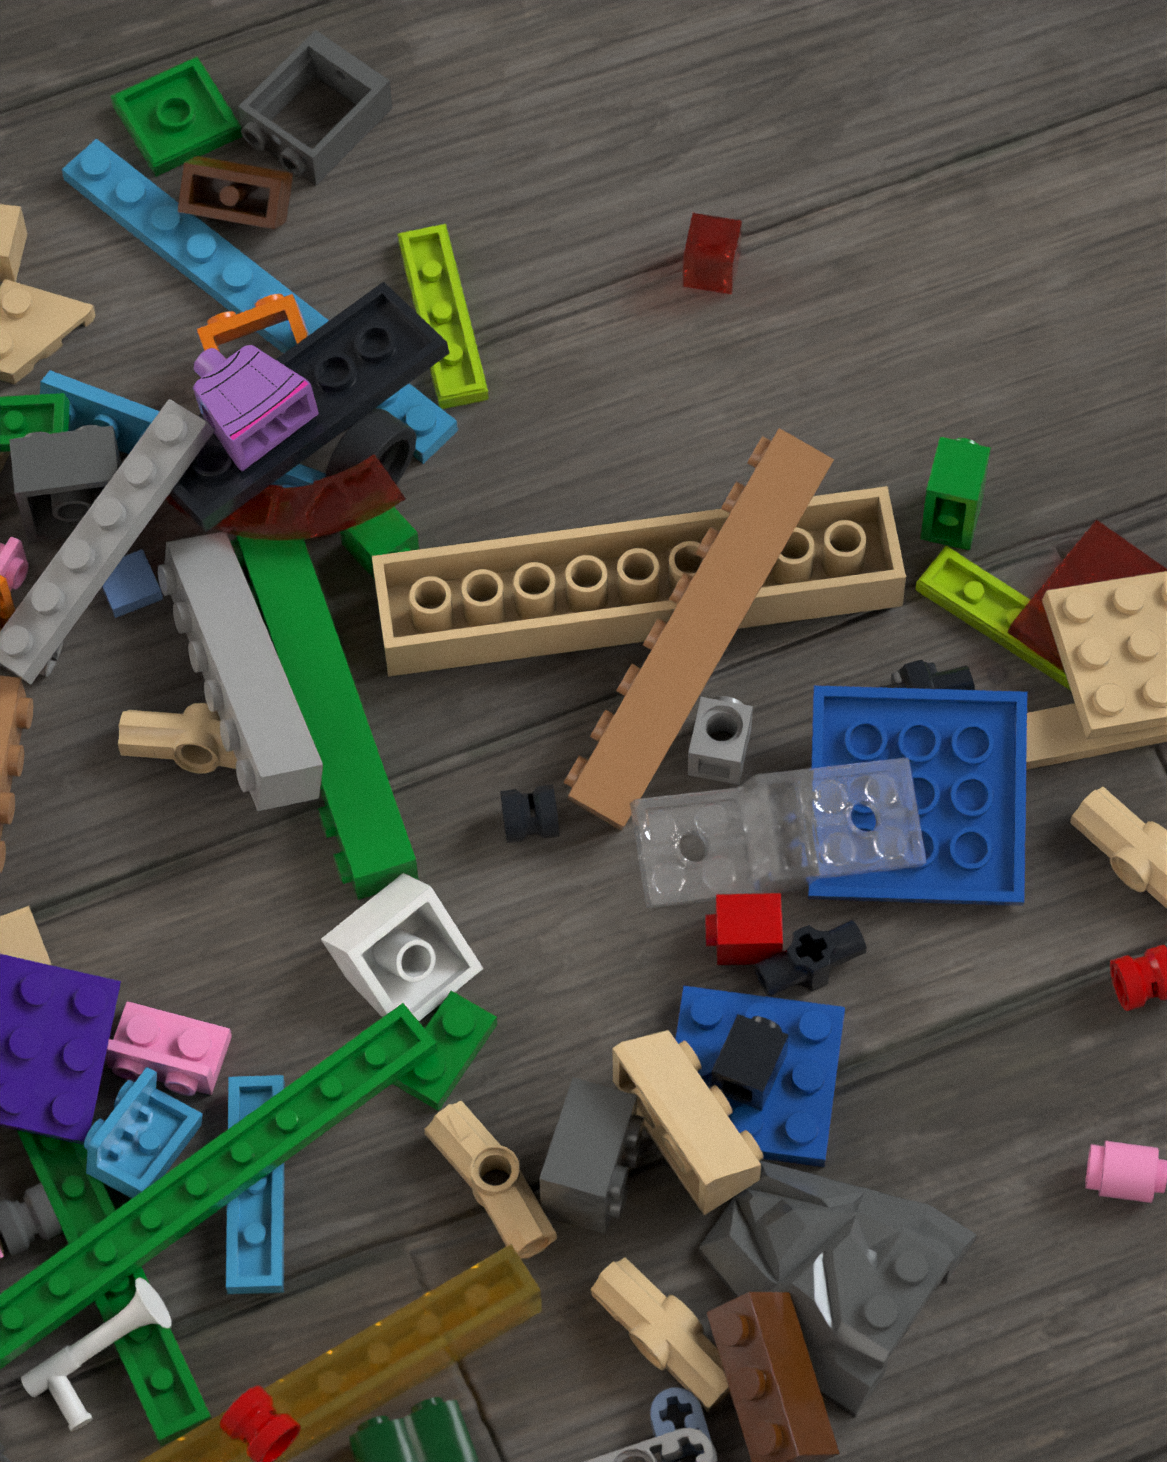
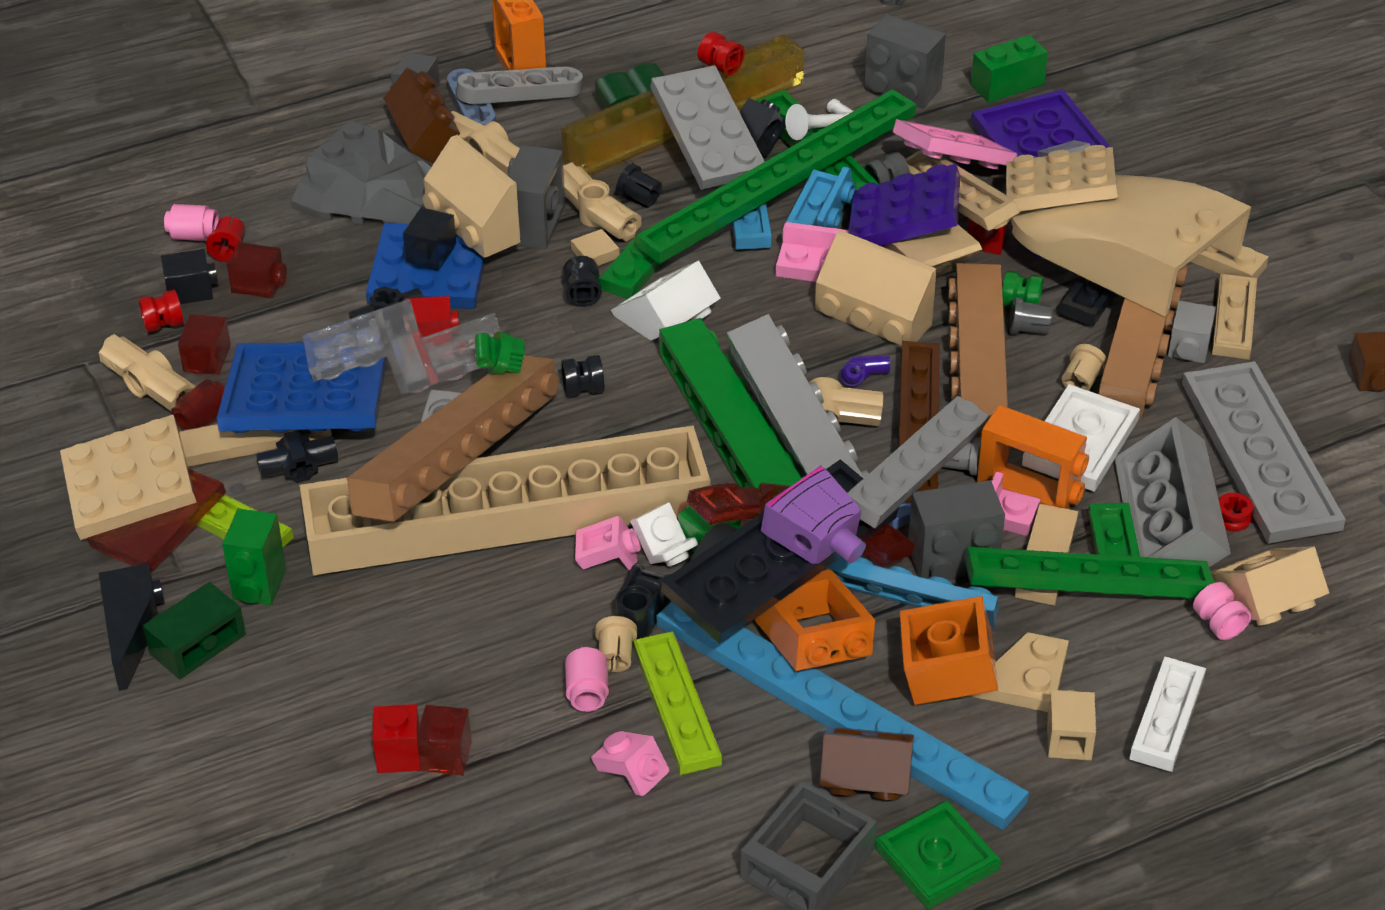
camera: 175 degrees right, 20 degrees down
(75, 720) = (918, 393): none -> reddish brown plate
(96, 926) = (876, 289): none -> tan slope
(115, 320) = (948, 650): none -> orange brick
(139, 823) = (860, 367): none -> dark purple arm
(217, 1325) = (763, 124): none -> black brick
(301, 1288) = (706, 125): none -> light grey plate
(423, 1218) = (638, 185): none -> black bush
(436, 519) = (662, 536): none -> white bracket
(470, 447) = (642, 599): none -> black piece
(499, 1094) = (596, 246): none -> tan tile
(502, 231) = (633, 757): none -> bright pink bracket
(508, 382) = (616, 640): none -> tan bush
(509, 516) = (606, 542): none -> bright pink bracket
(522, 1003) = (582, 281): none -> black wheel
(546, 331) = (586, 678): none -> bright pink brick
(642, 769) = (499, 353): none -> green piece
(766, 258) = (396, 738): none -> red brick
(1011, 1055) = (256, 270): none -> clear red brick
(1024, 422) = (194, 630): none -> dark green brick
(1060, 790) = (199, 405): none -> clear red brick
(1066, 1135) = (218, 238): none -> red bush
(1072, 904) = (204, 344): none -> clear red brick
(1107, 458) = (128, 603): none -> black slope
(1114, 1047) = (189, 275): none -> black brick

